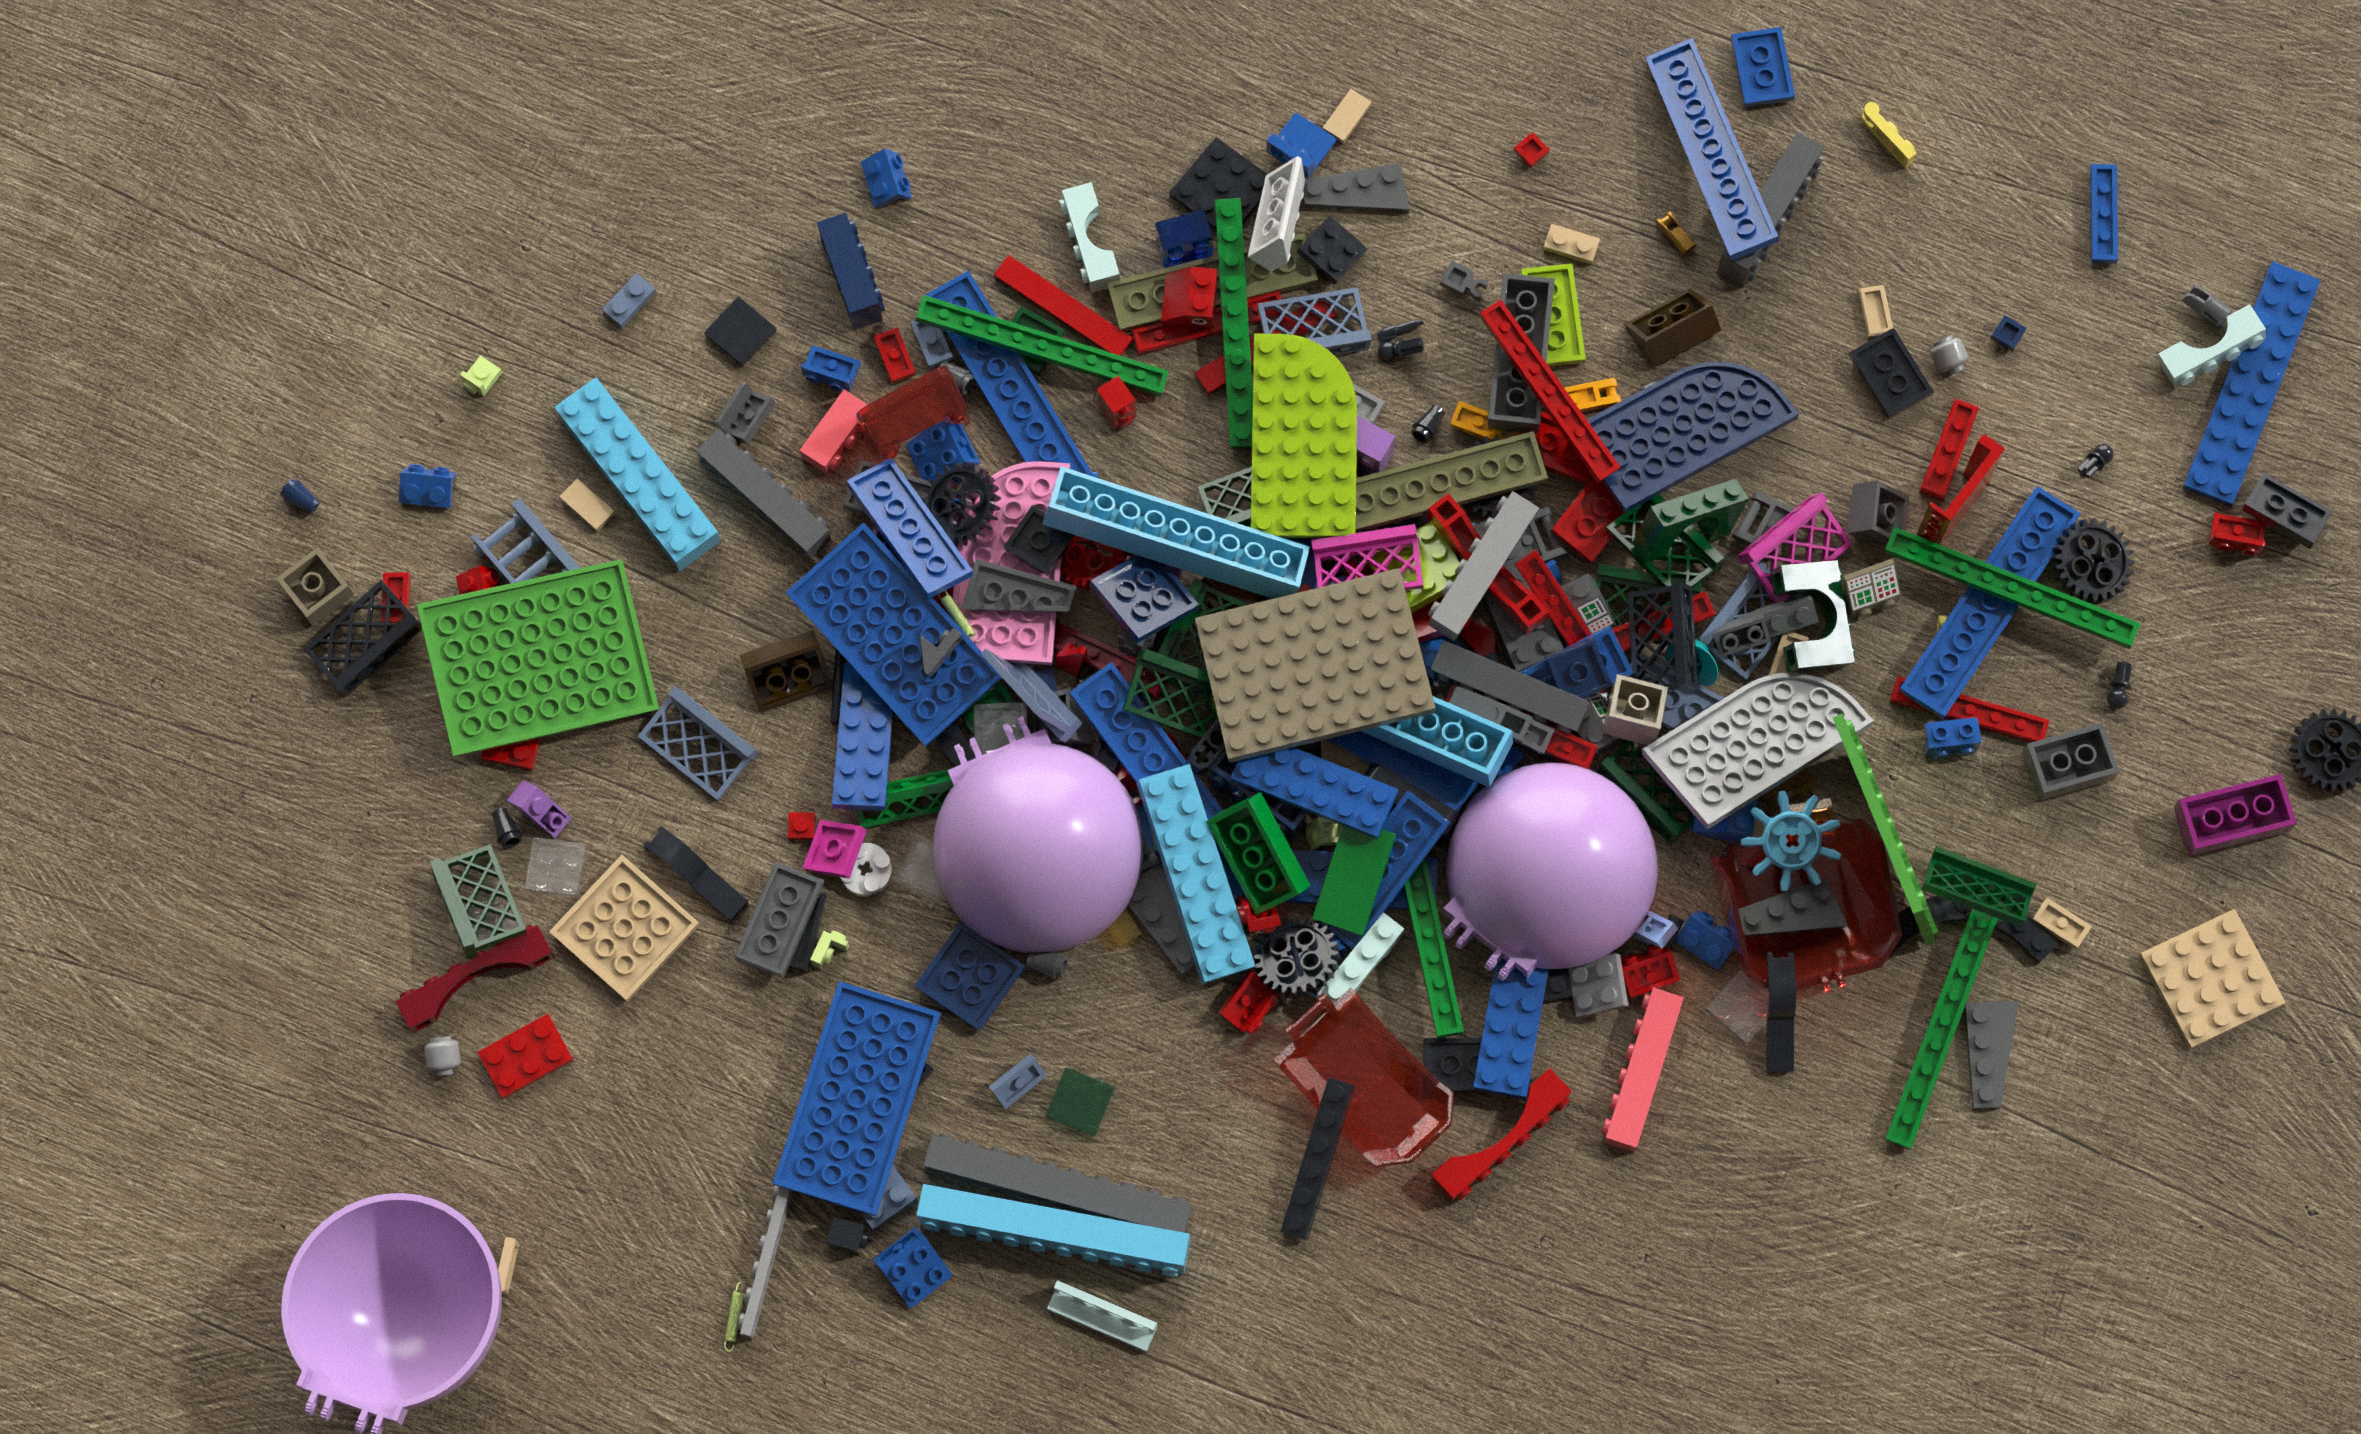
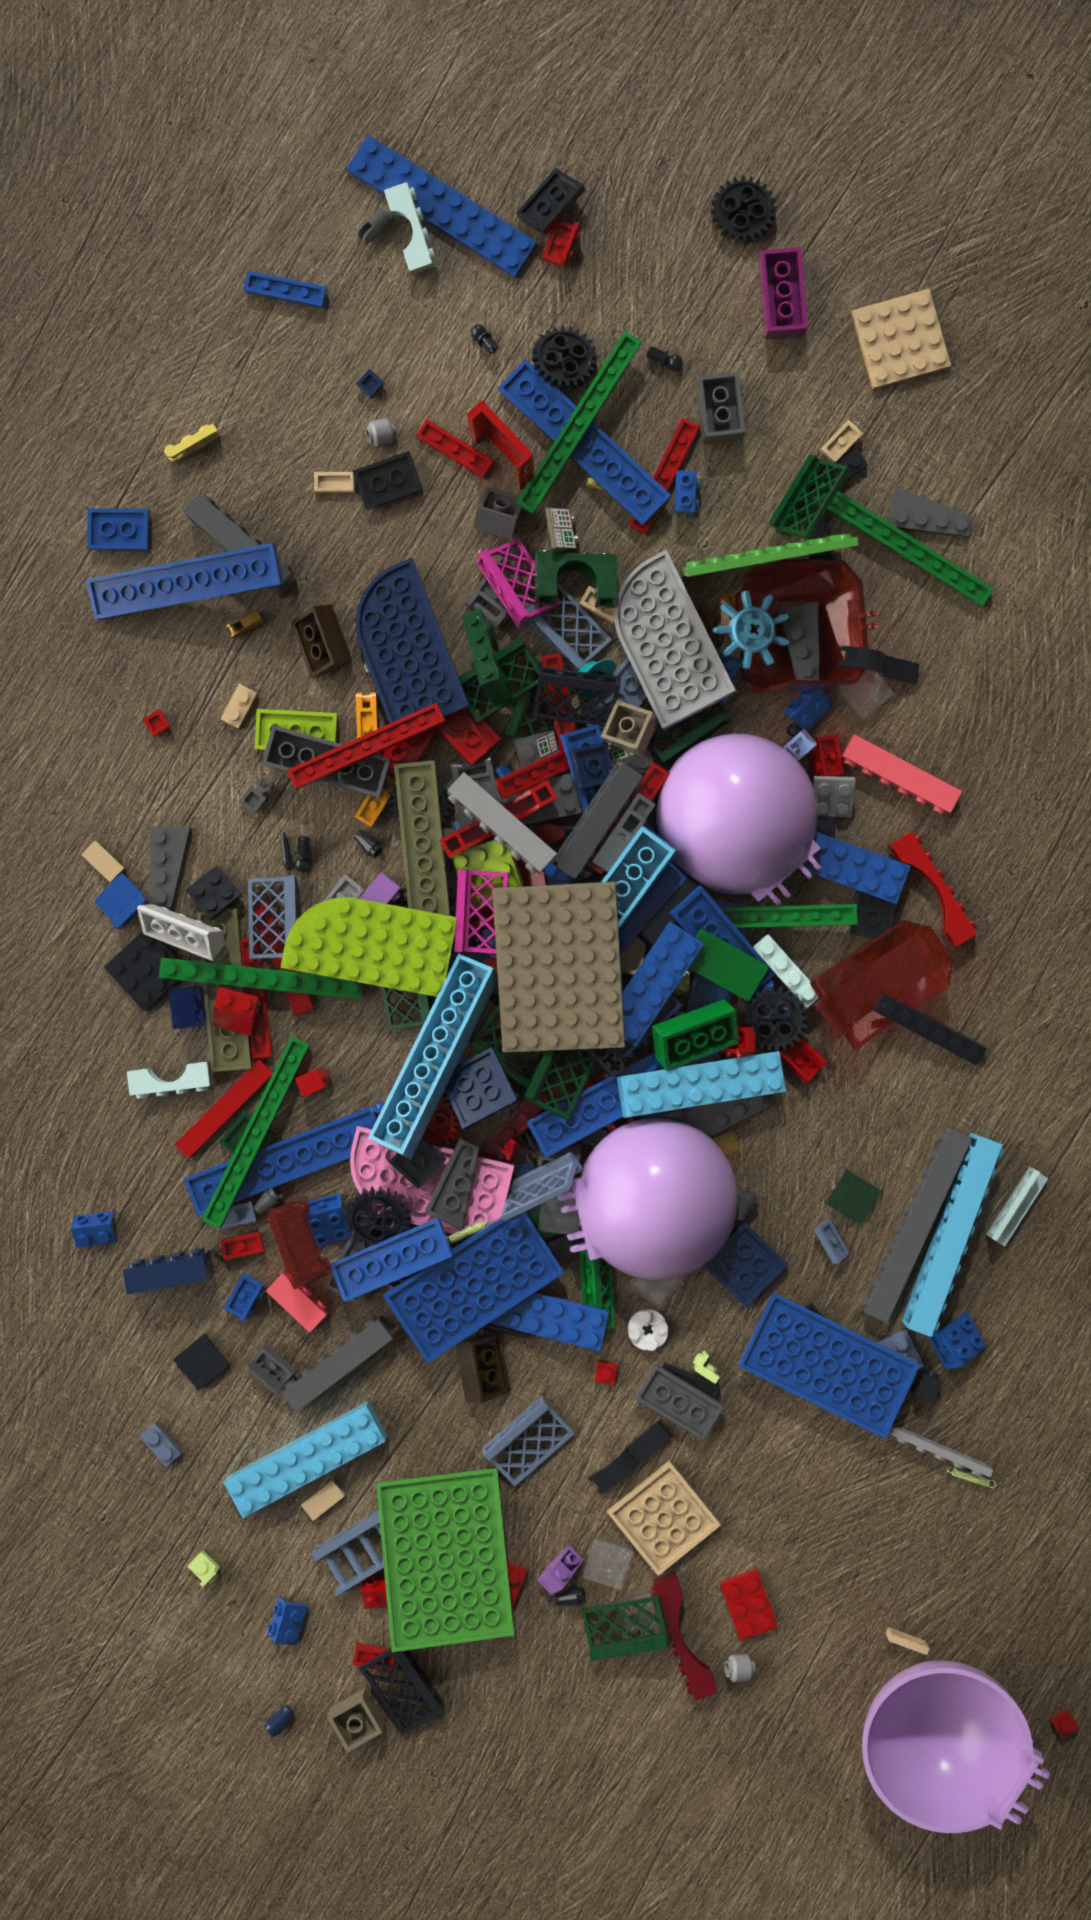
camera: 85 degrees left, 15 degrees up
(834, 849) = (631, 1352): dark pink plate -> none
(935, 656) = (499, 1257): dark grey slope -> none
(1763, 624) = (574, 618): dark grey slope -> none

